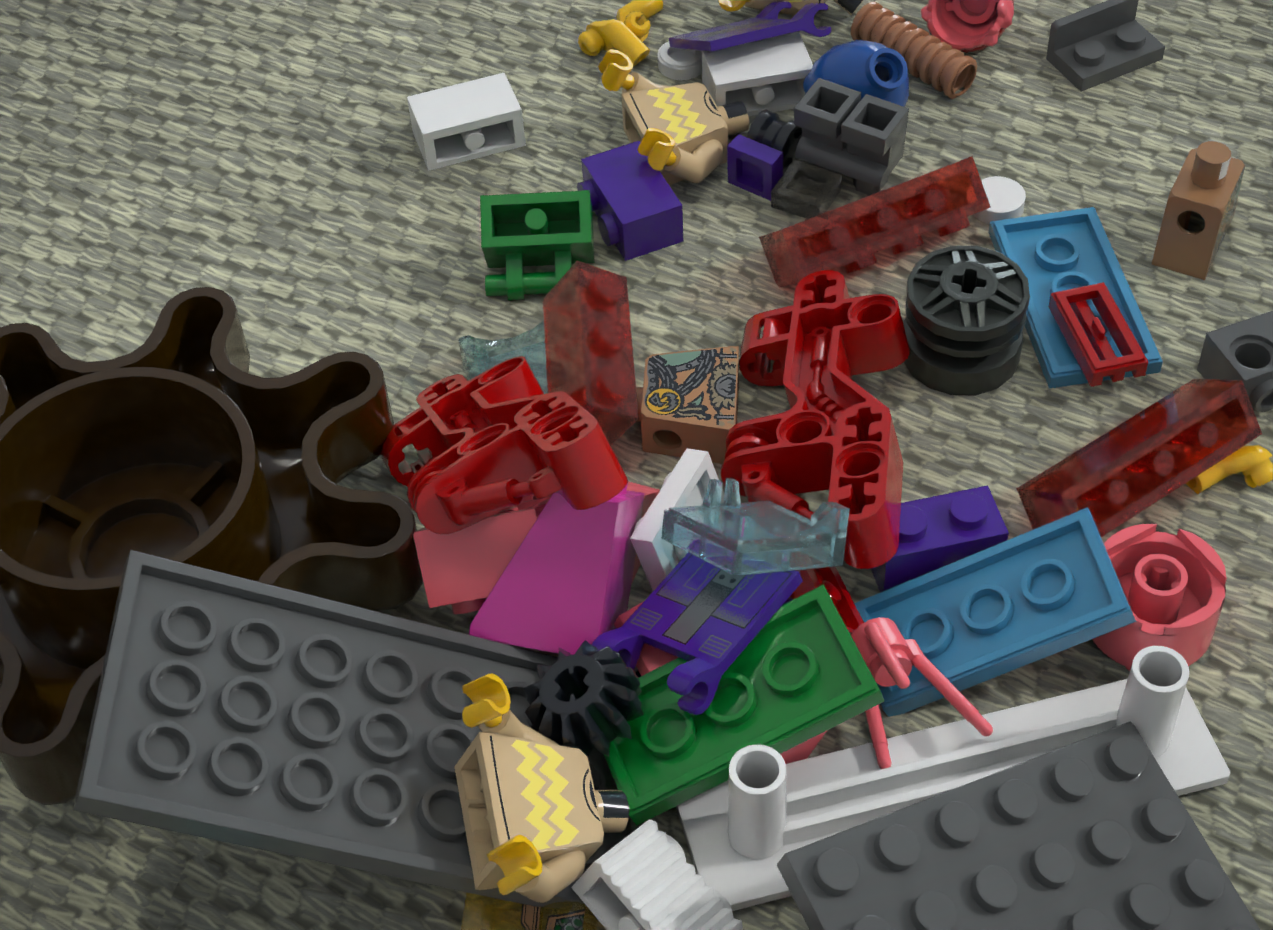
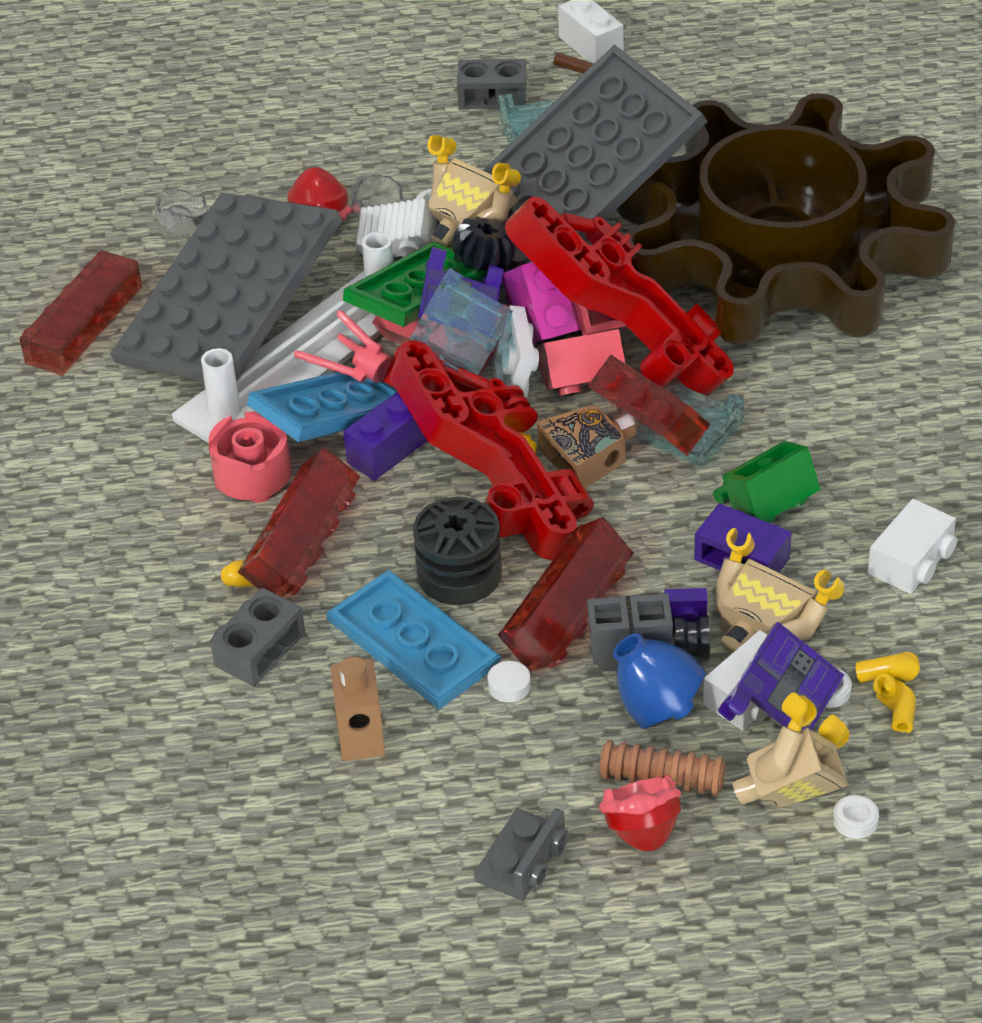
camera: 145 degrees right, 5 degrees down
(1081, 347) = (369, 600): red tile -> none

